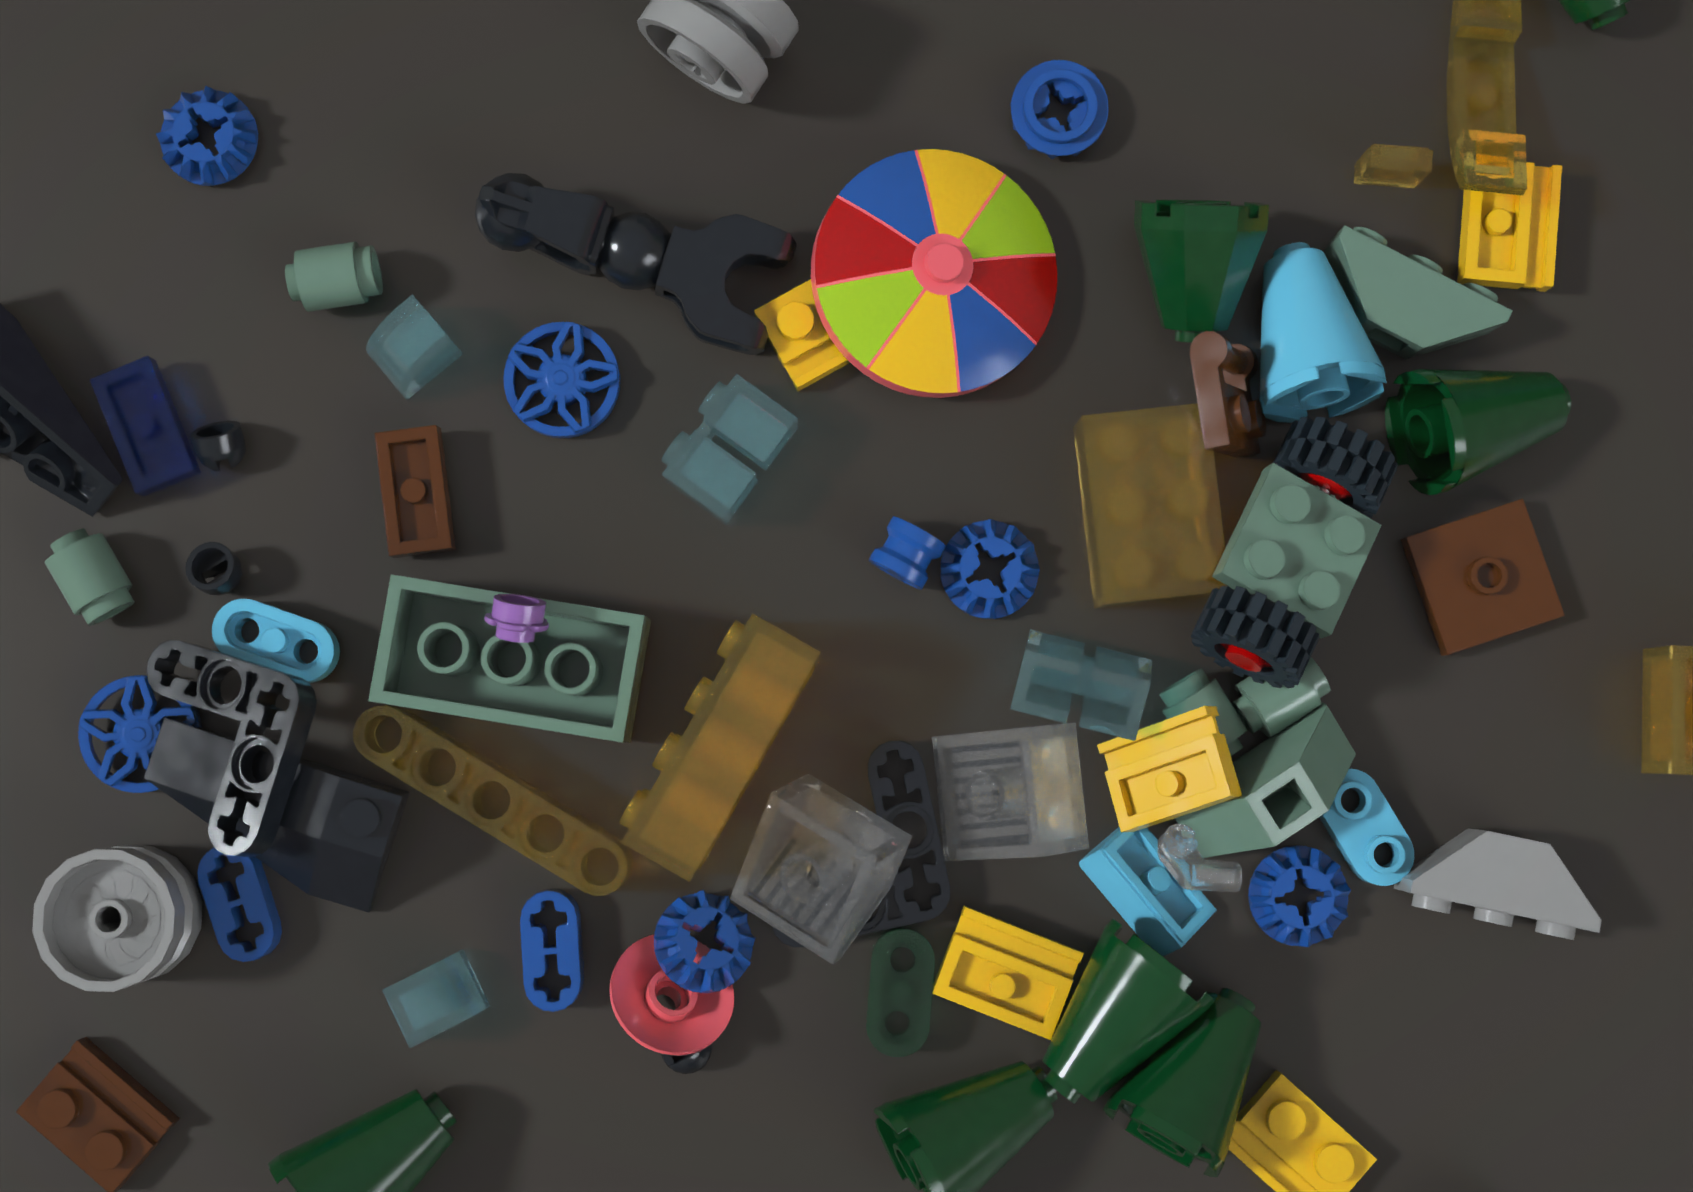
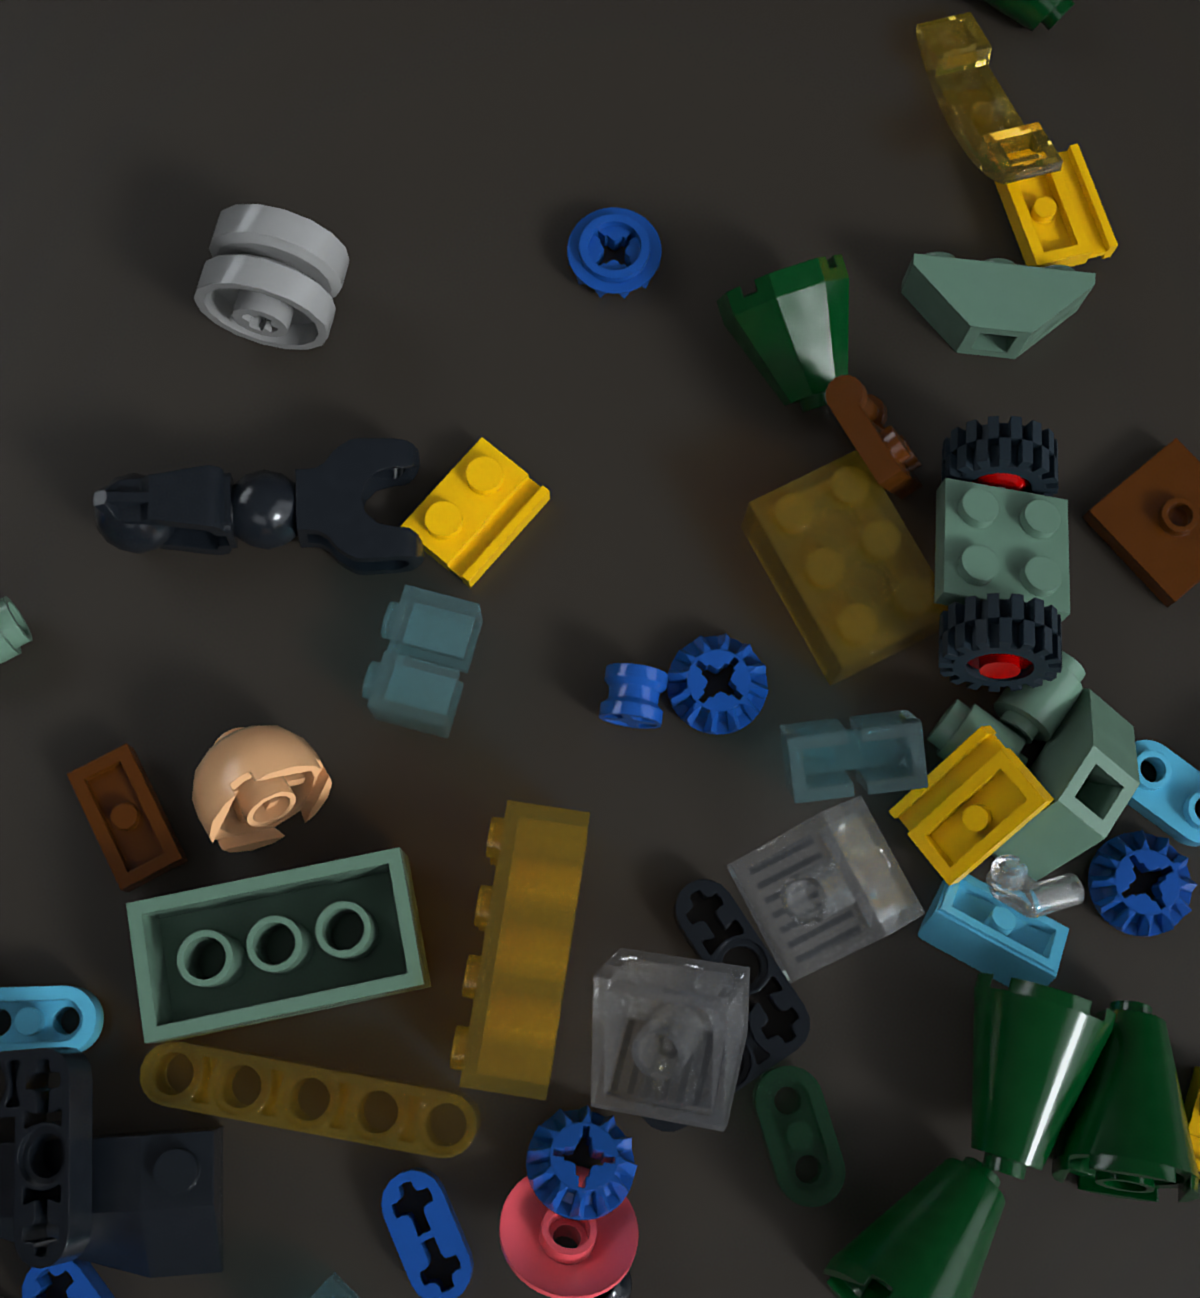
camera: 20 degrees left, 10 degrees down
(411, 347) = (77, 679): clear light blue brick -> none
(517, 617) = (270, 895): medium lavender plate -> none
(539, 504) = (255, 783): none -> light nougat cylinder
(561, 379) = (237, 658): blue wheel -> none
(934, 273) = (556, 433): dish -> none
(1007, 972) = (896, 1072): yellow plate -> none
(1312, 340) = (930, 365): medium azure cone -> none
(1393, 166) = (932, 195): clear yellow tile -> none
(1469, 421) = (1098, 384): dark green cone -> none

